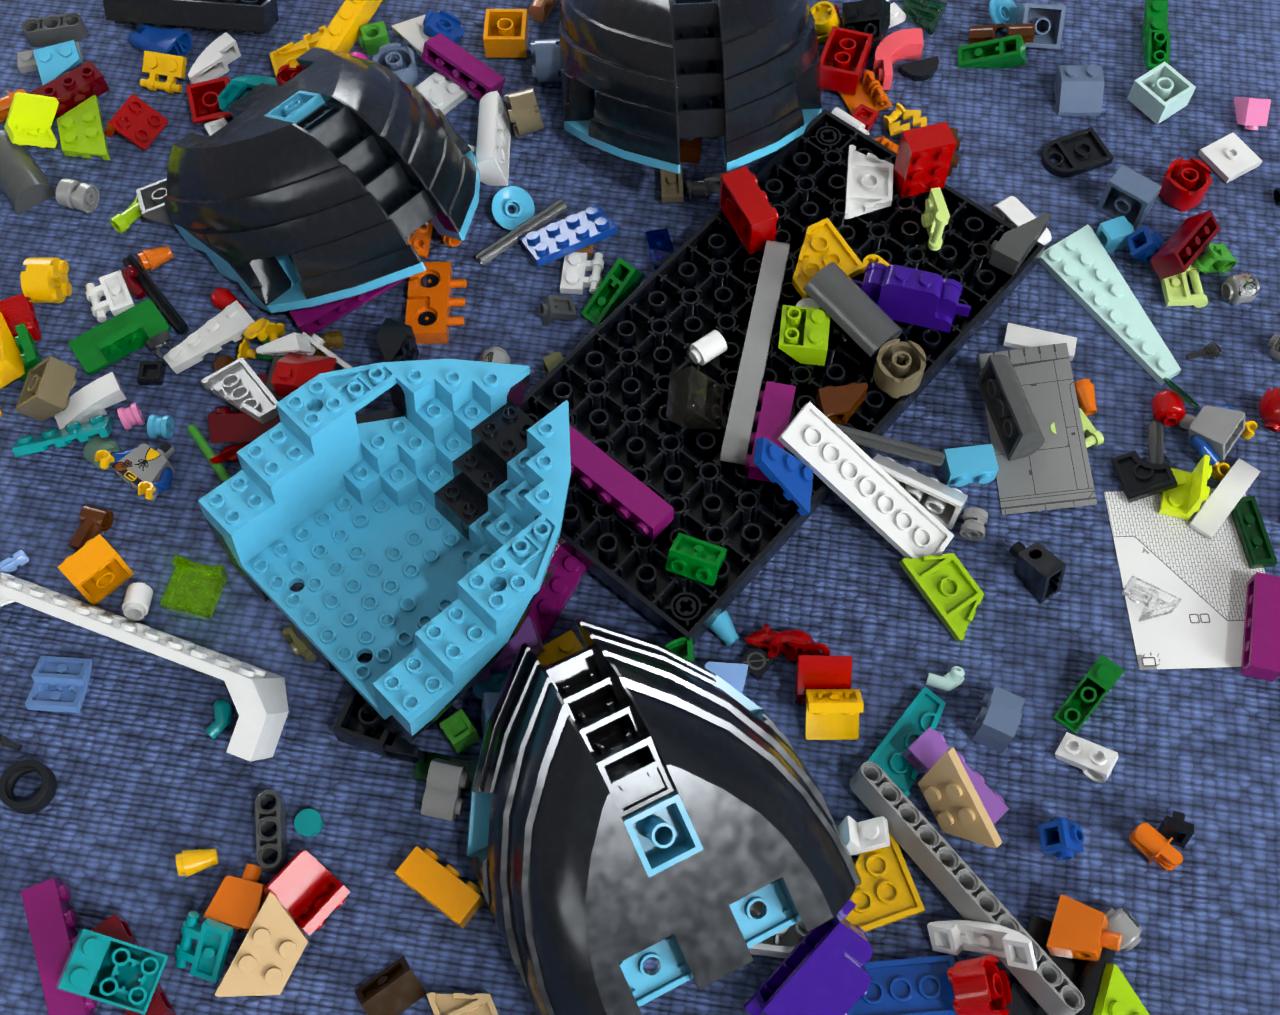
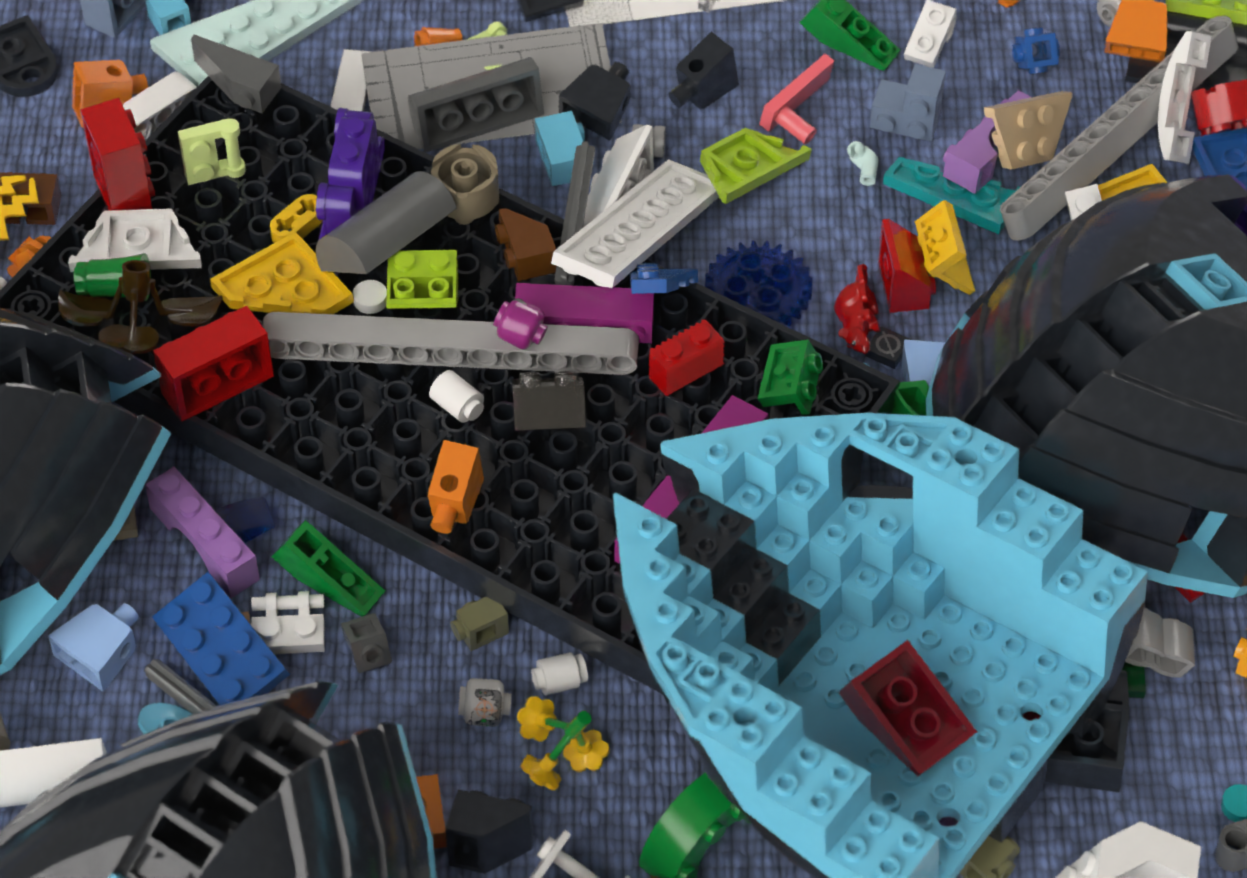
camera: 100 degrees left, 10 degrees down
(376, 566) = (908, 709): none -> dark red slope
(581, 176) = (96, 643): none -> light blue torso
(627, 335) = (454, 485): none -> orange torso
(631, 237) = (220, 548): none -> medium lavender arch
(720, 489) = (686, 357): none -> red brick
(750, 377) = (520, 323): none -> magenta head
(809, 157) = (135, 285): none -> dark brown plant
(833, 171) = (102, 276): none -> green plant
(841, 589) = (763, 280): none -> clear blue gear
(1002, 621) = (781, 108): none -> coral piece
(1015, 493) = (598, 98): none -> black torso
(1033, 188) = (101, 82): none -> orange torso

